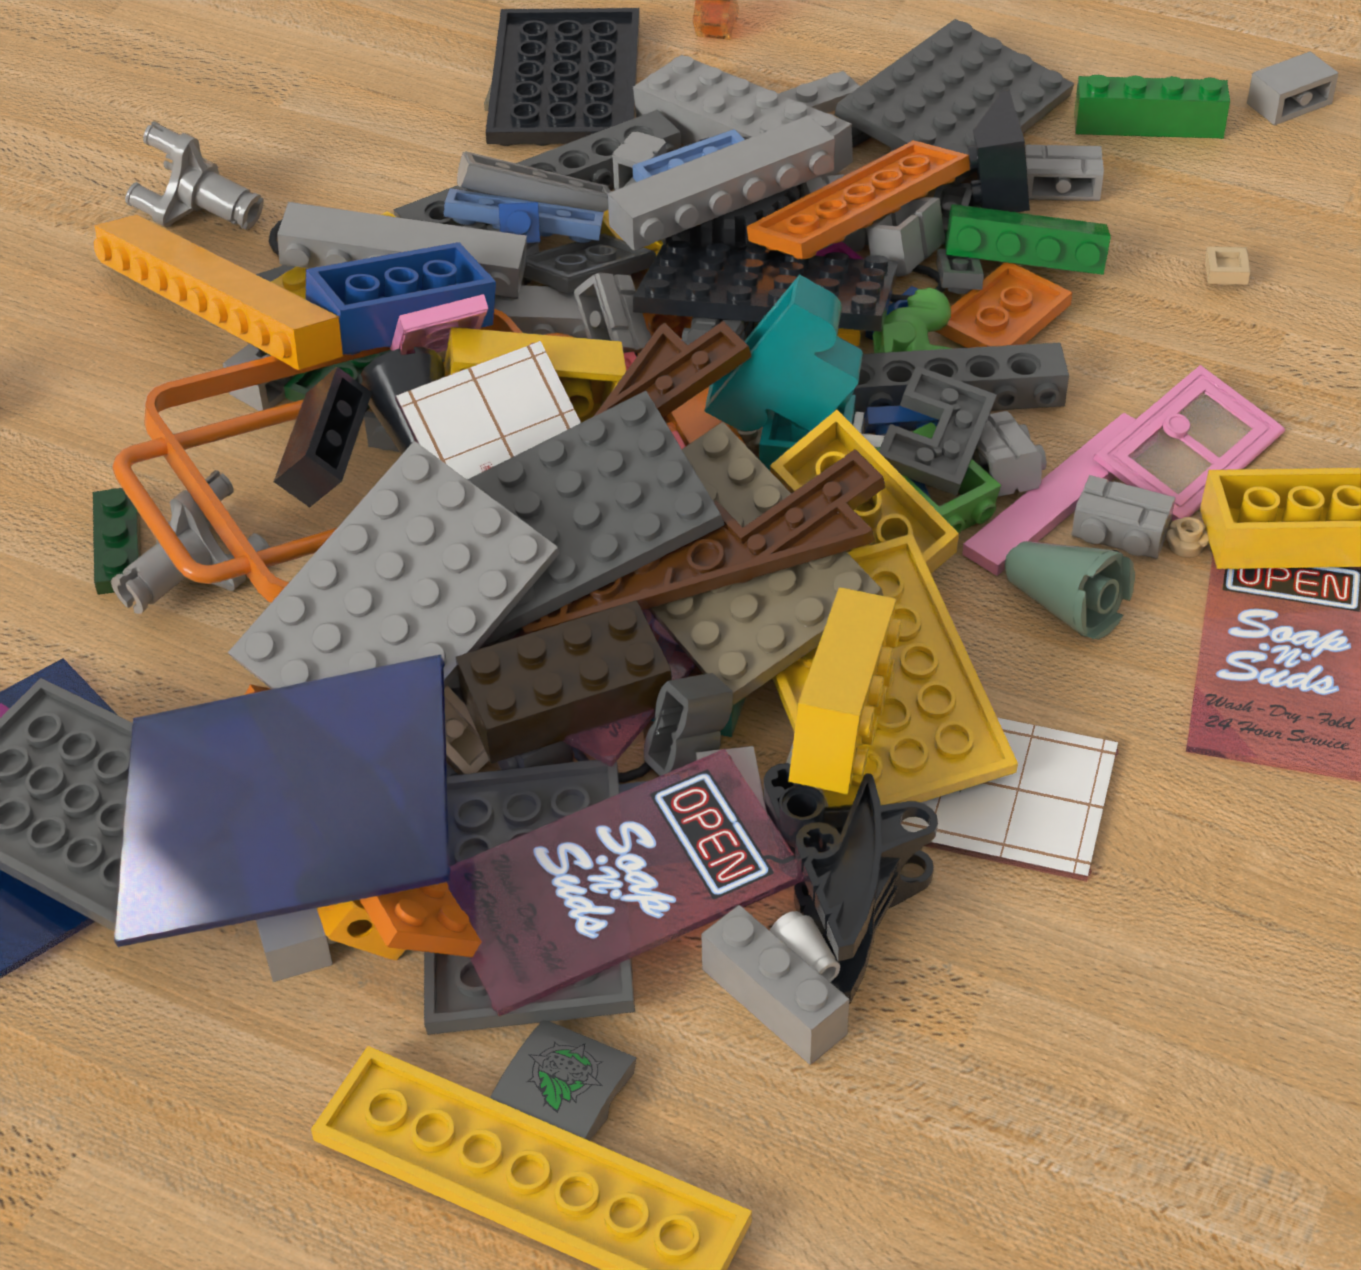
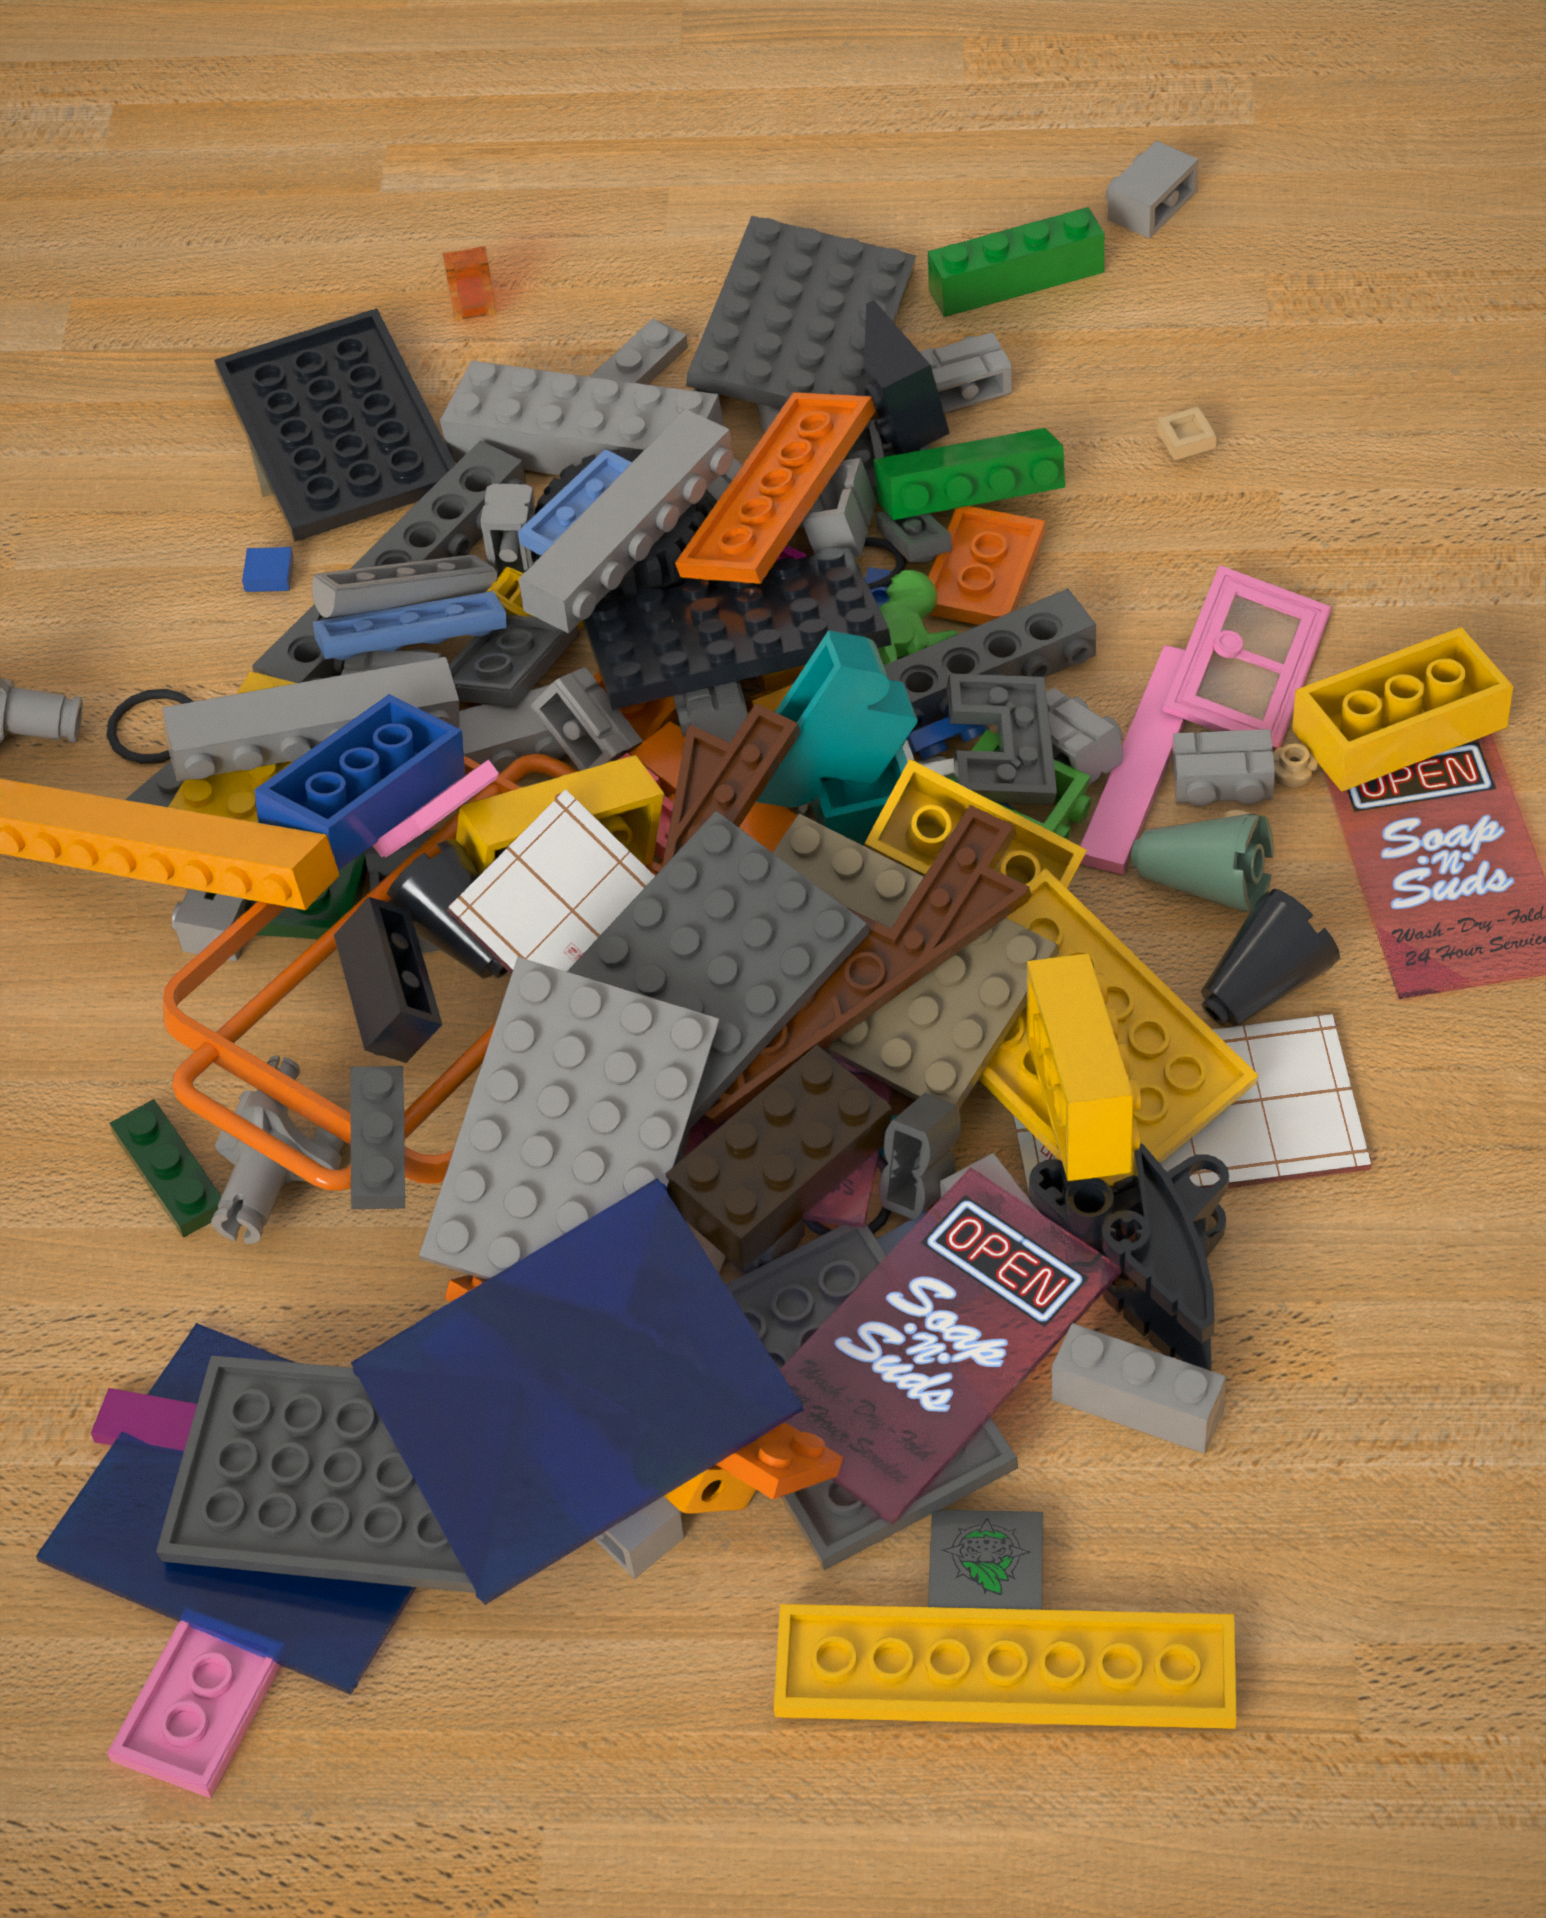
camera: 20 degrees left, 5 degrees up
(244, 550) = (377, 1137): none -> dark grey plate
(449, 154) = (268, 569): none -> blue tile
(521, 220) = (417, 638): blue plate -> none
(805, 939) = (1150, 1333): white cone -> none
(1076, 676) = (1267, 959): none -> black cone

